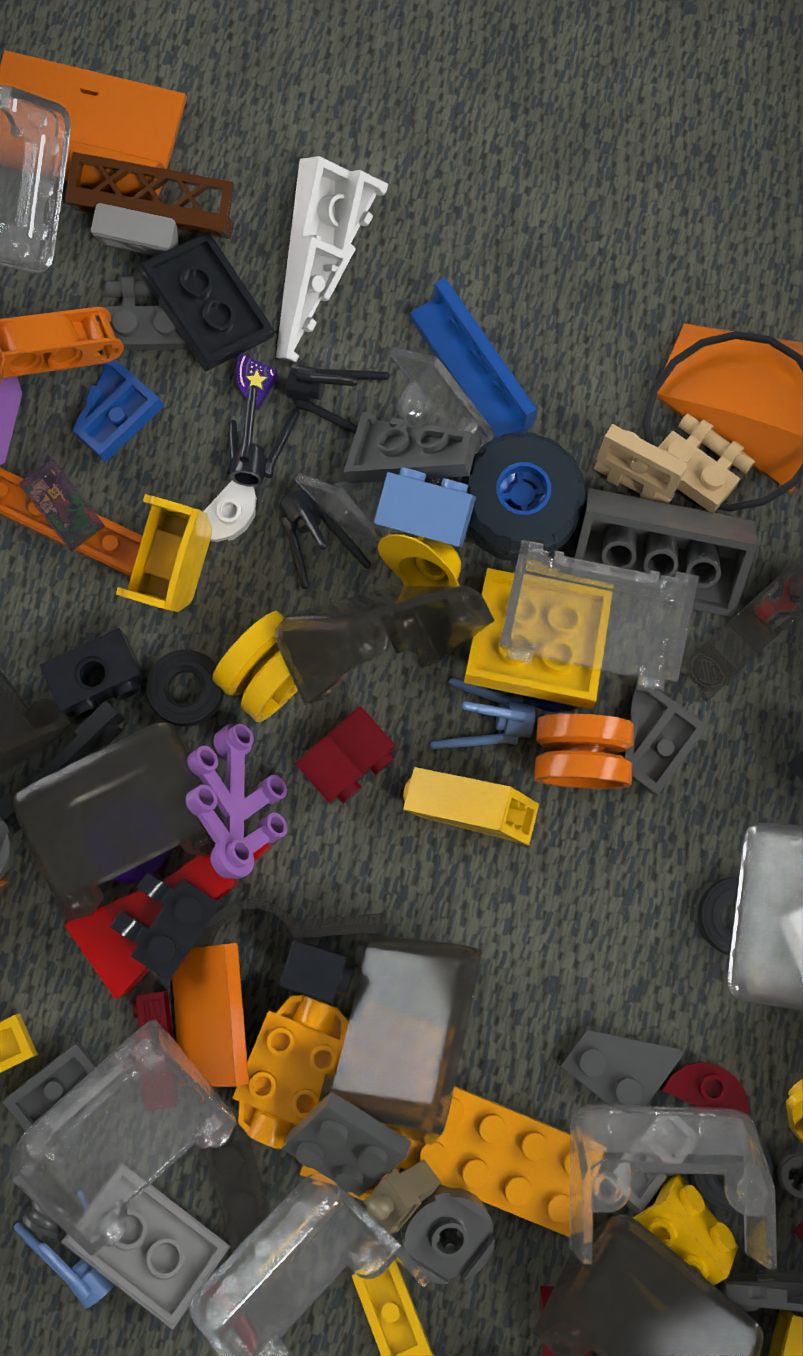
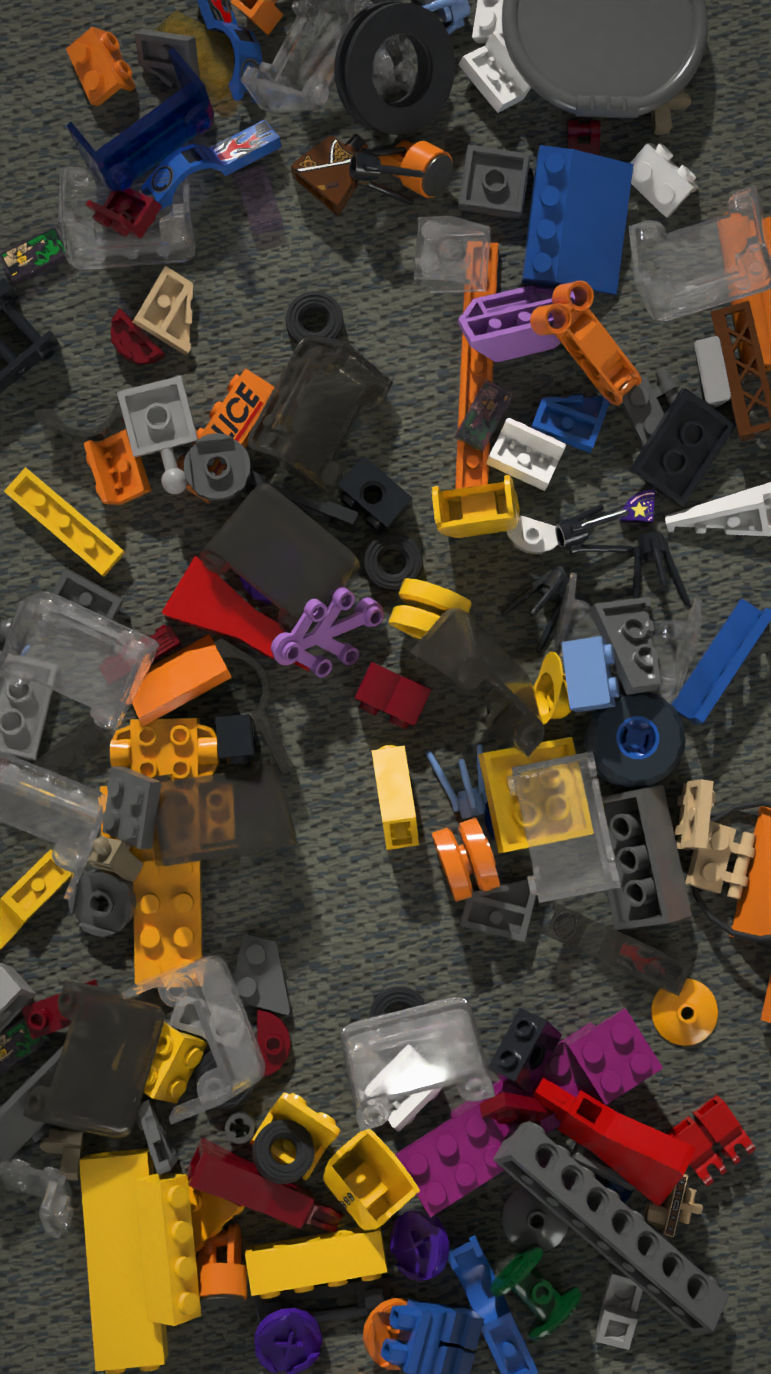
camera: 65 degrees right, 5 degrees up
(128, 473) = (526, 454): none -> white bracket
(175, 929) = (223, 631): black plate -> none

